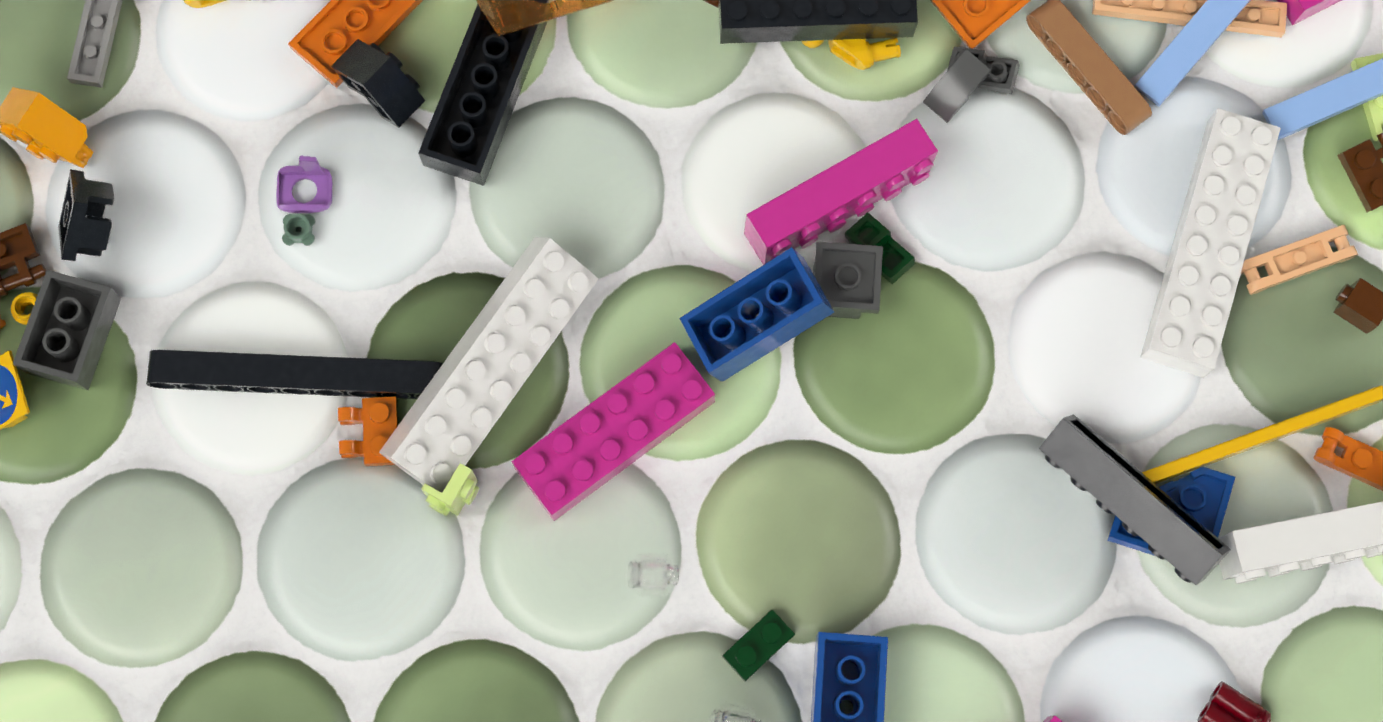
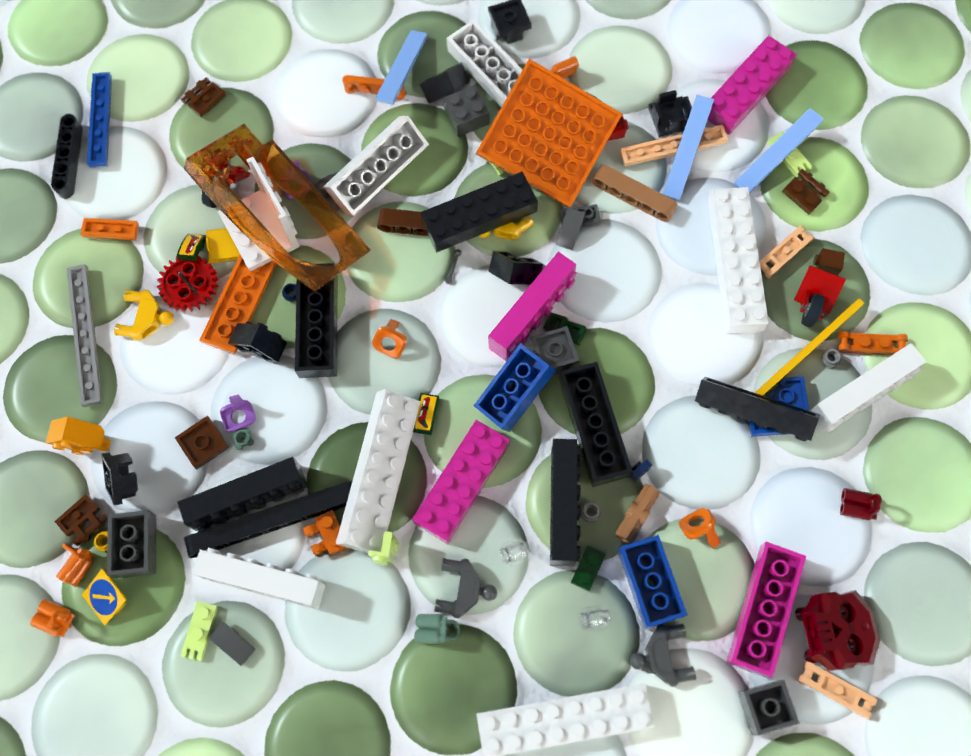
camera: 15 degrees left, 5 degrees down
(122, 503) = (199, 630): none -> yellowish green hinge
(164, 542) = (232, 643): none -> dark grey slope
(232, 211) = (202, 442): none -> reddish brown plate
(237, 457) = (258, 578): none -> white brick
(265, 319) = (243, 495): none -> black brick
(457, 13) = (287, 289): none -> dark blue plate
(480, 642) = (433, 629): none -> sand green piece
(557, 604) = (468, 589): none -> dark grey connector
(594, 146) = (390, 331): none -> orange piece
(601, 301) = (426, 414): none -> slope
(724, 94) = (448, 280): none -> dark grey hinge
(758, 531) = (564, 507): none -> black brick
(803, 548) = (590, 505): none -> light grey plate
(836, 119) = (513, 268): none -> black panel
(862, 422) = (595, 424): none -> black brick
(871, 590) = (637, 513): none -> medium nougat piece
(905, 523) = (640, 469): none -> dark blue plate
(970, 656) = (706, 527): none -> orange piece
(1304, 460) = (835, 354): none -> light grey plate
(1319, 351) = (818, 294): none -> red plate

